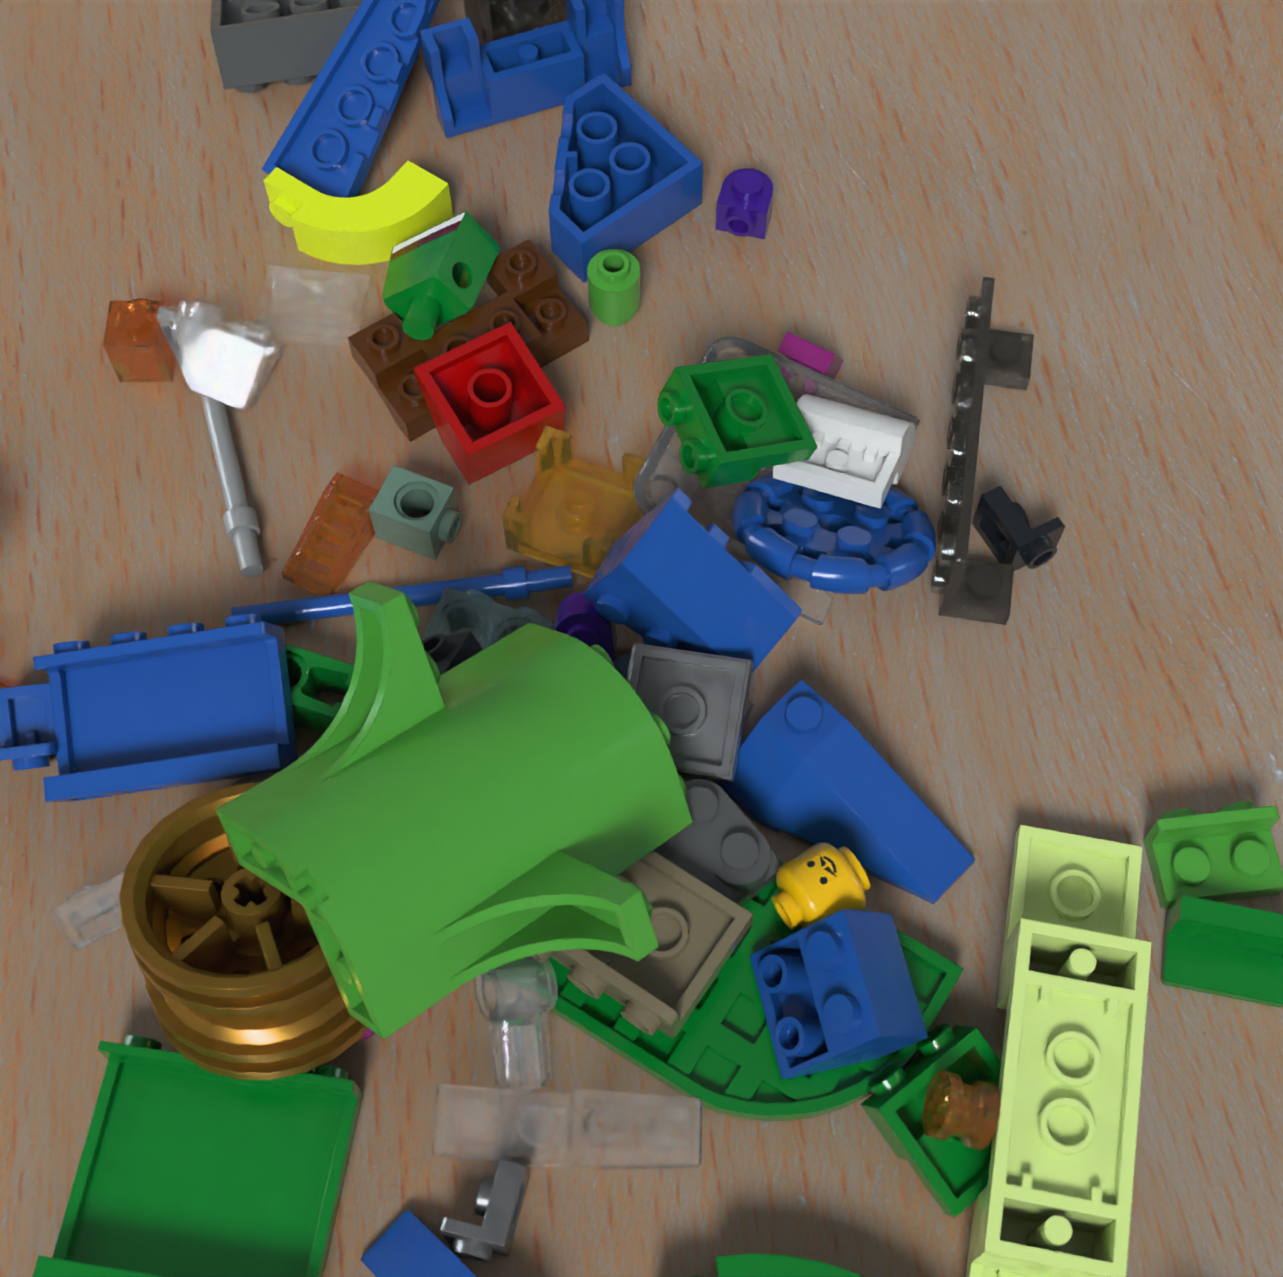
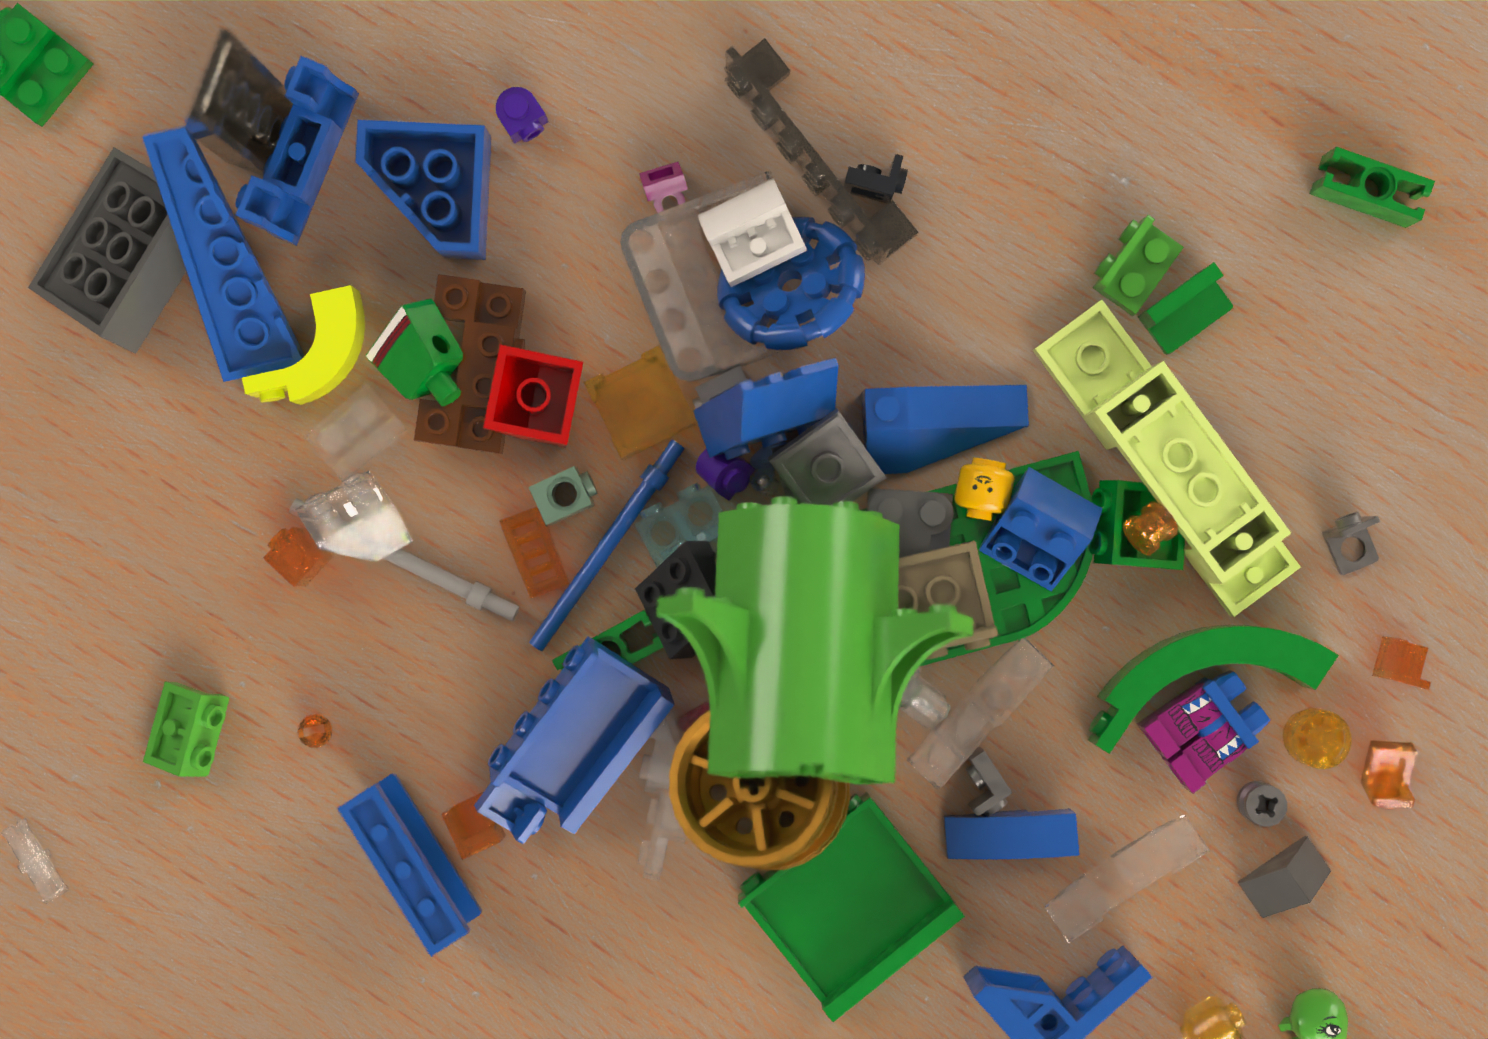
camera: 50 degrees left, 25 degrees up
(614, 286) = (522, 259): bright green brick -> none
(734, 419) = (690, 285): green plate -> none

